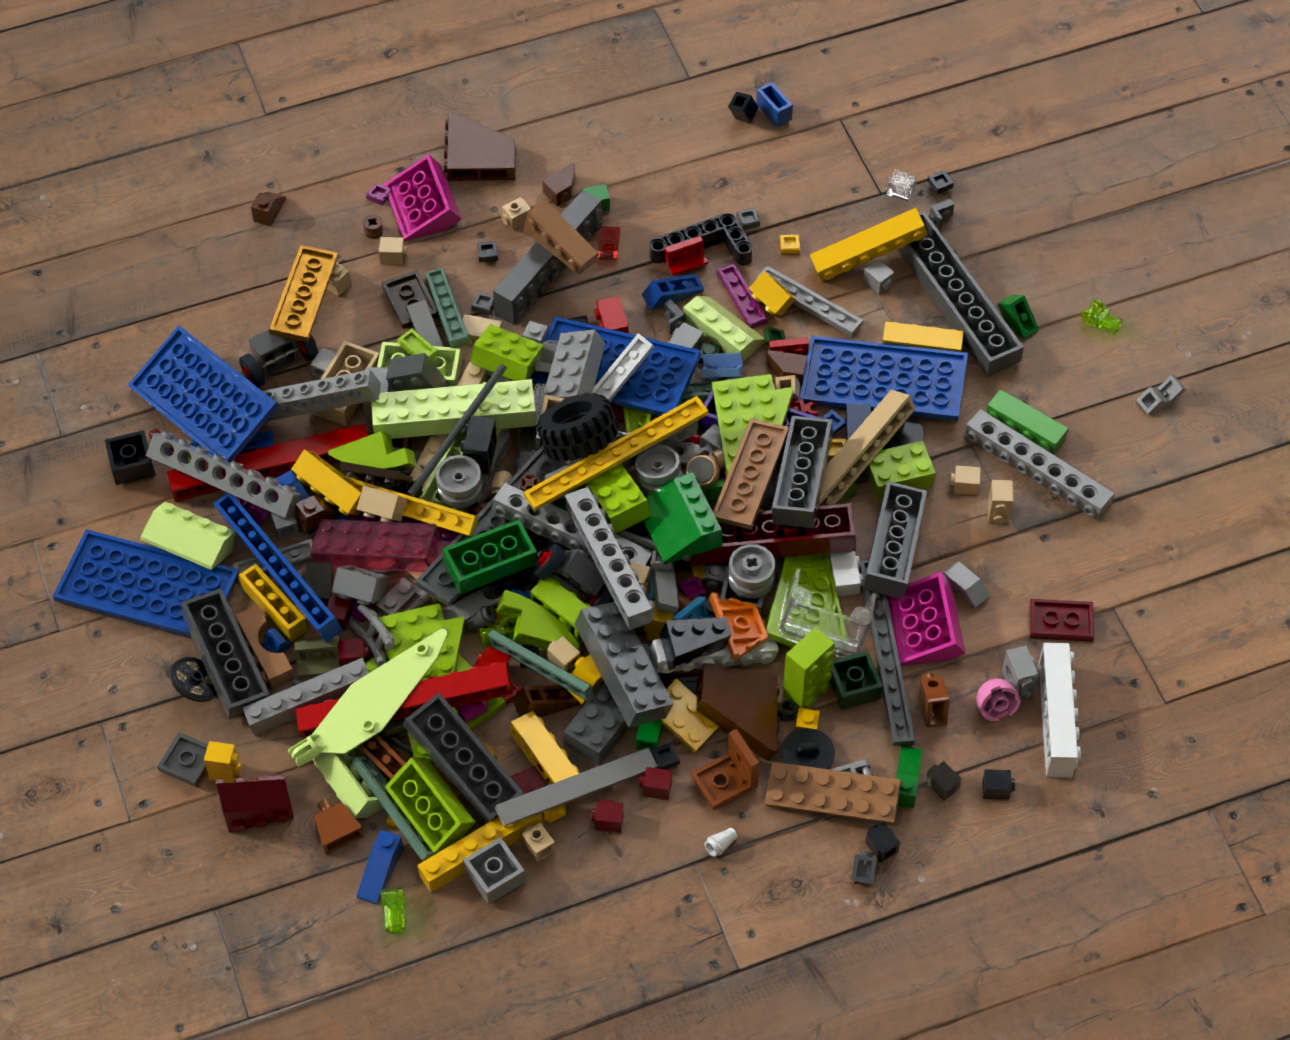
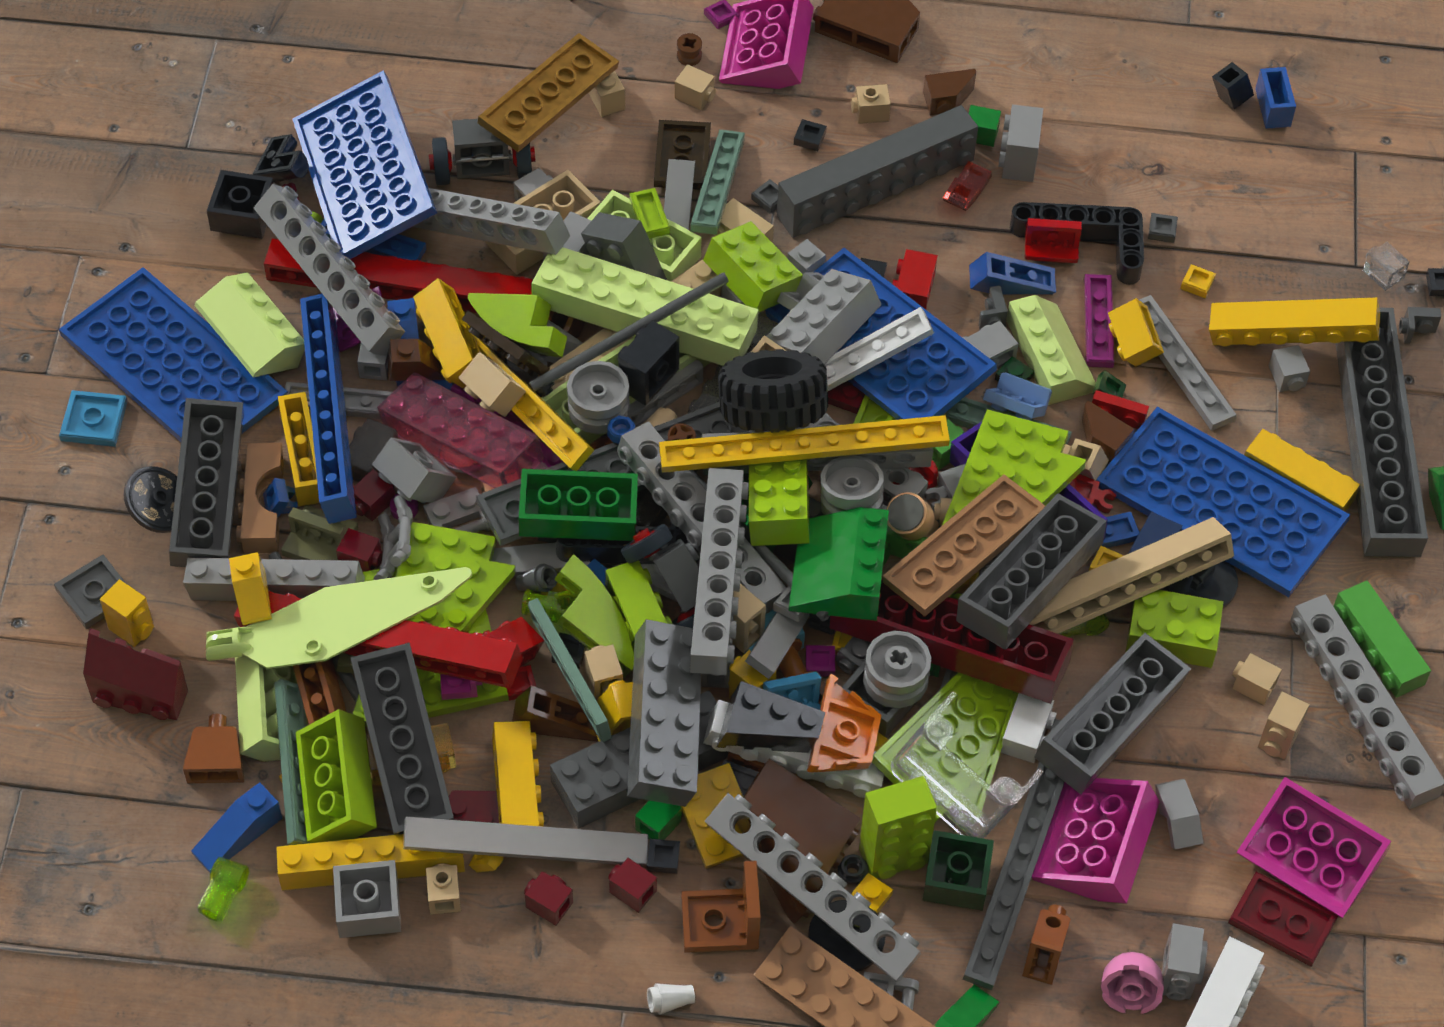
camera: 25 degrees right, 0 degrees up
(112, 646) = (93, 418): none -> dark azure tile
(137, 418) = (281, 160): none -> black brick
(303, 707) = (250, 588): none -> yellow slope
(485, 496) = (619, 426): none -> blue tile
(559, 237) = (893, 149): medium nougat wedge -> none
(631, 200) = (1020, 143): none -> light grey brick
(850, 755) = (723, 822): none -> light grey brick
(1058, 567) = (1314, 847): none -> dark pink slope

